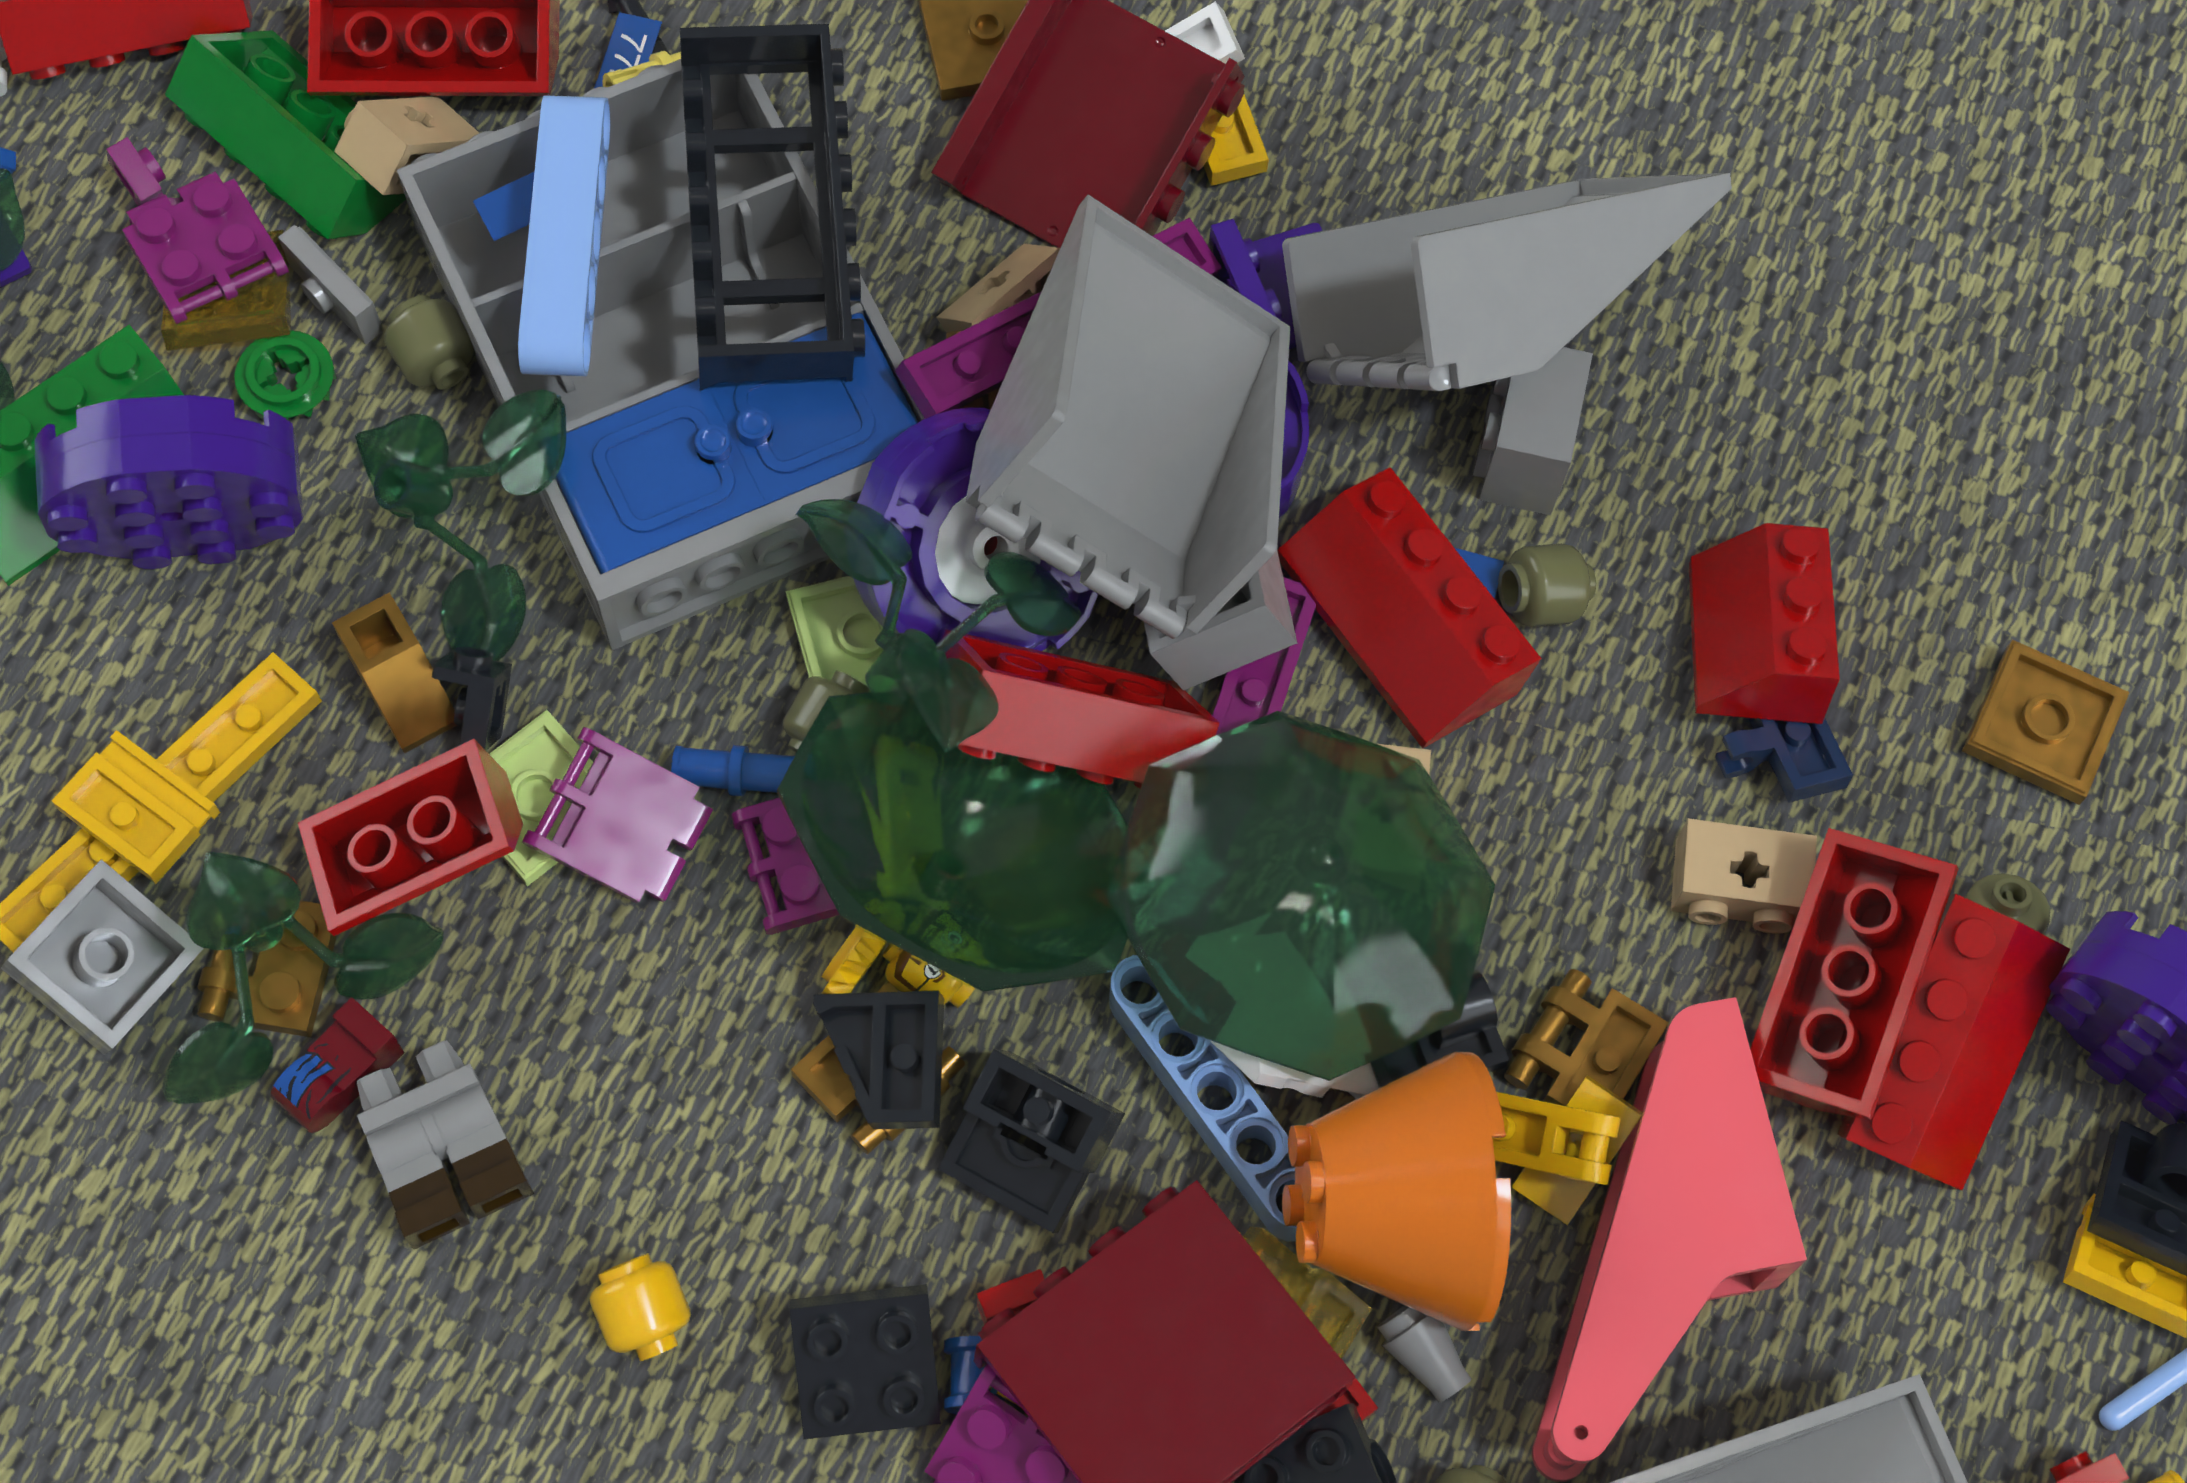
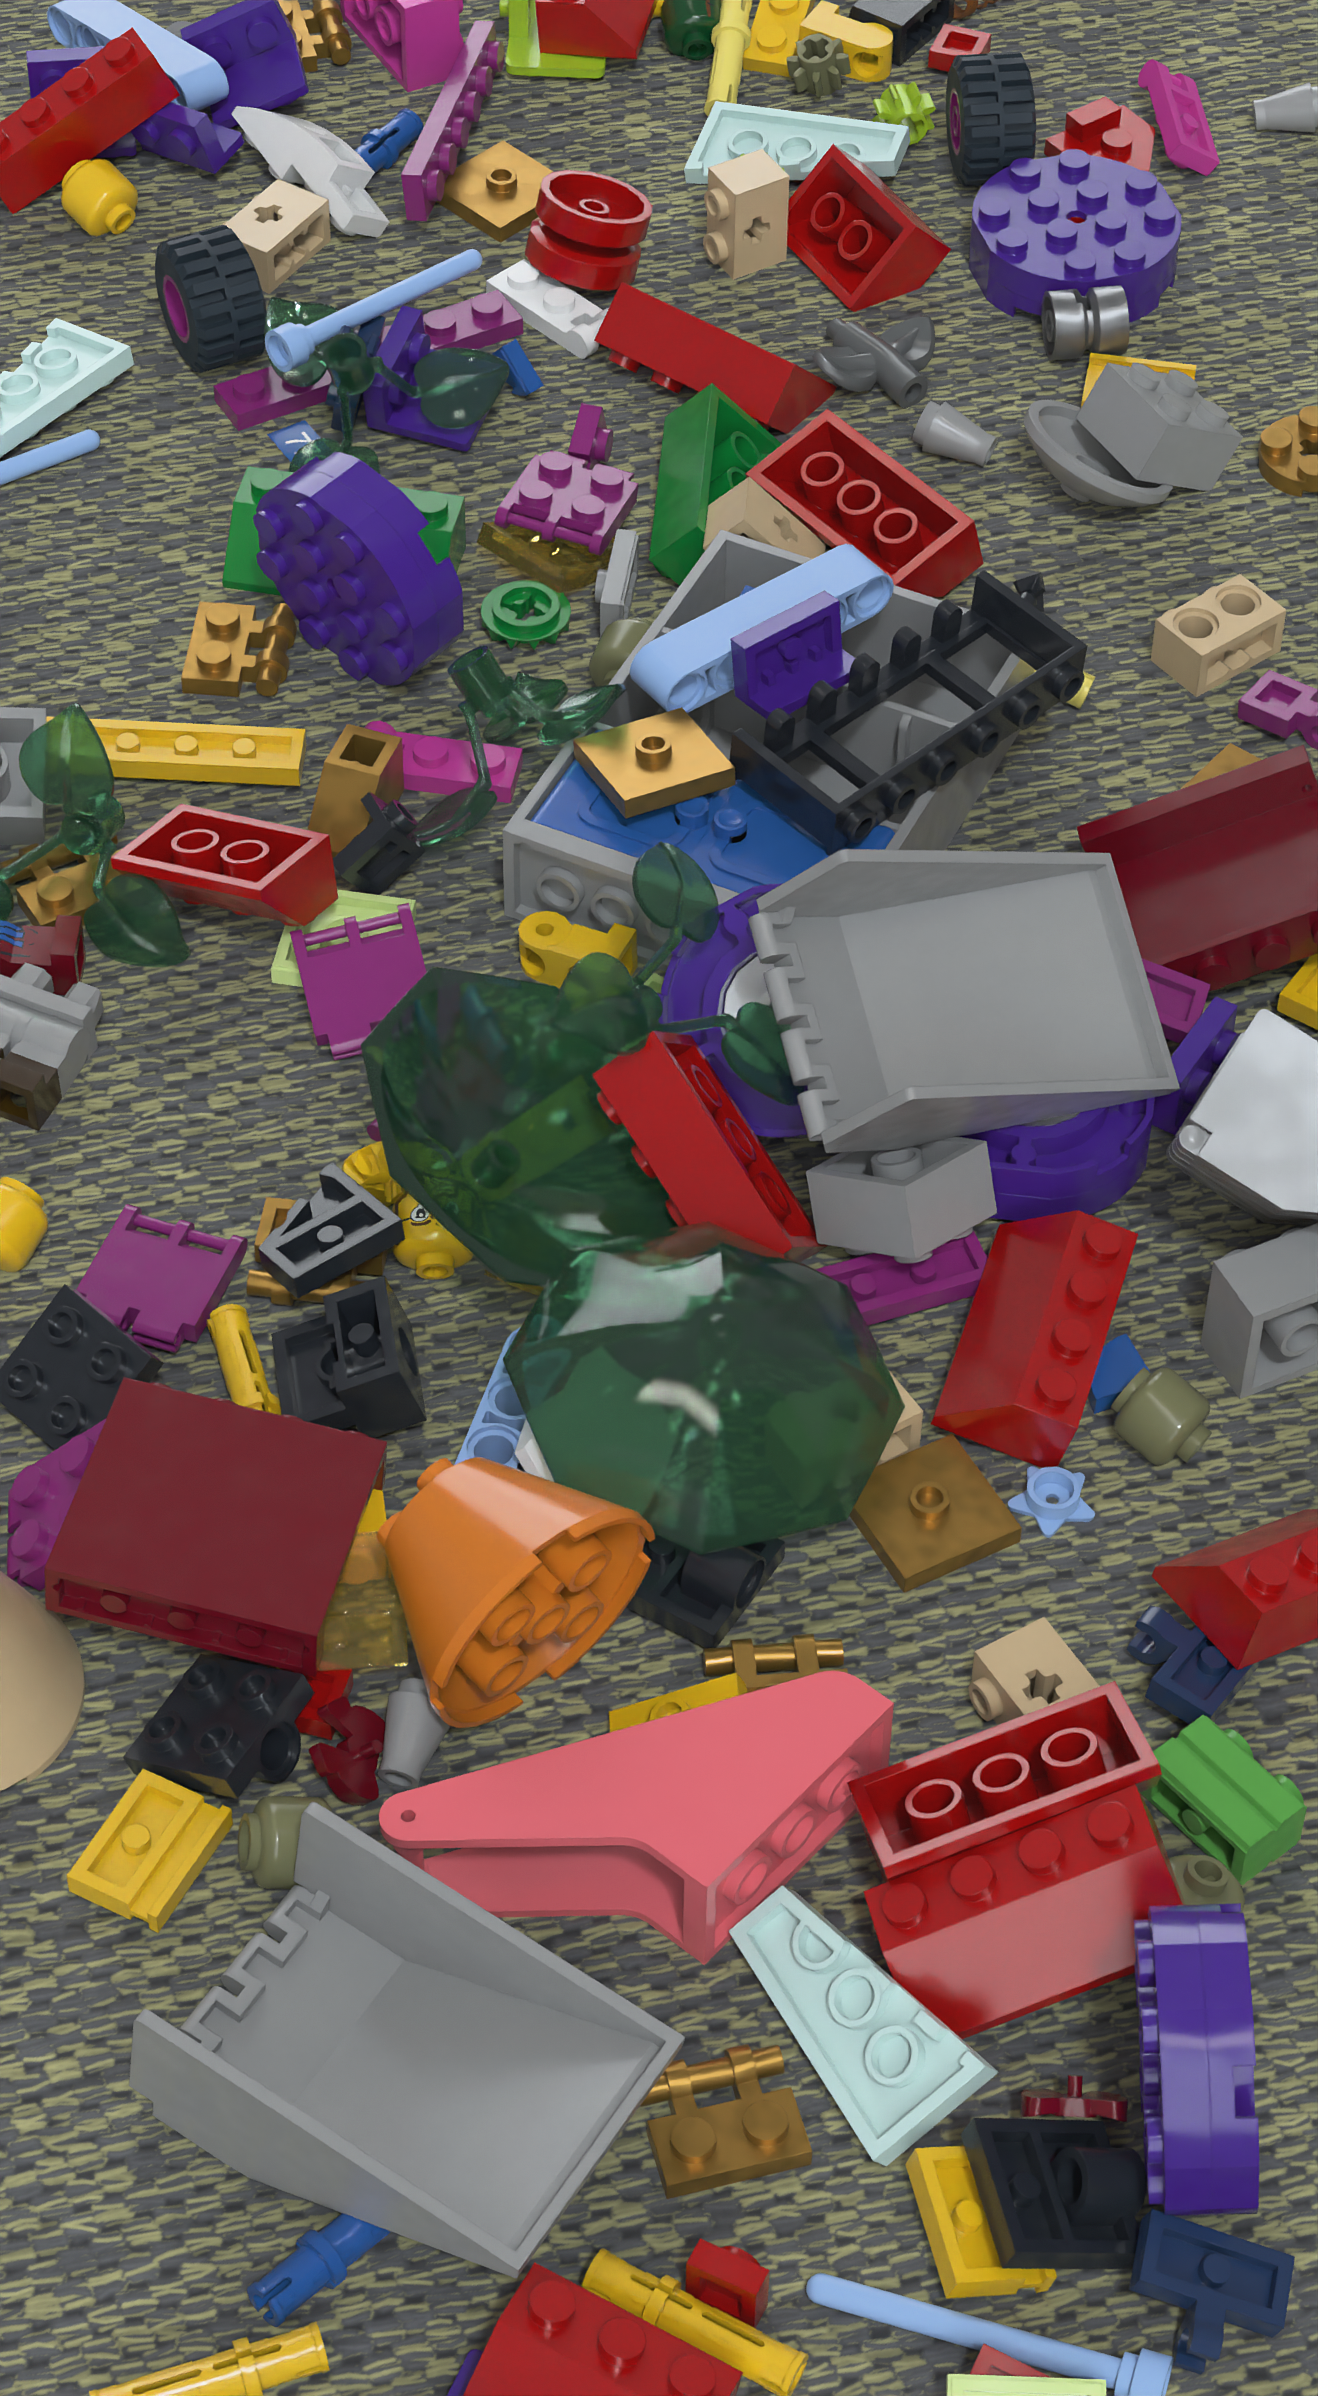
camera: 55 degrees right, 20 degrees down
(93, 645) = (221, 647): none -> pearl gold plate
(135, 807) = (122, 716): yellow plate -> none
(406, 566) = (449, 764): none -> dark pink plate
(634, 243) = (789, 654): none -> dark purple bracket
(641, 432) = (654, 762): none -> plate
(723, 637) = (553, 946): none -> yellow leg
(800, 1217) = (160, 1281): none -> magenta plate
(975, 1226) = (240, 1359): none -> yellow pin
(1429, 1423) = (353, 1762): none -> dark red piece
(1505, 807) = (932, 1514): none -> pearl gold plate
(1540, 1135) = (653, 1666): yellow plate -> none
(1549, 701) = (1054, 1483): none -> light blue plate
(1924, 815) = (1226, 1798): none -> bright green brick
(1943, 1228) = (864, 2033): none -> light aqua wing
(1954, 1365) = (730, 2139): none -> pearl gold plate
(2108, 1126) = (1073, 2104): none -> dark red piece

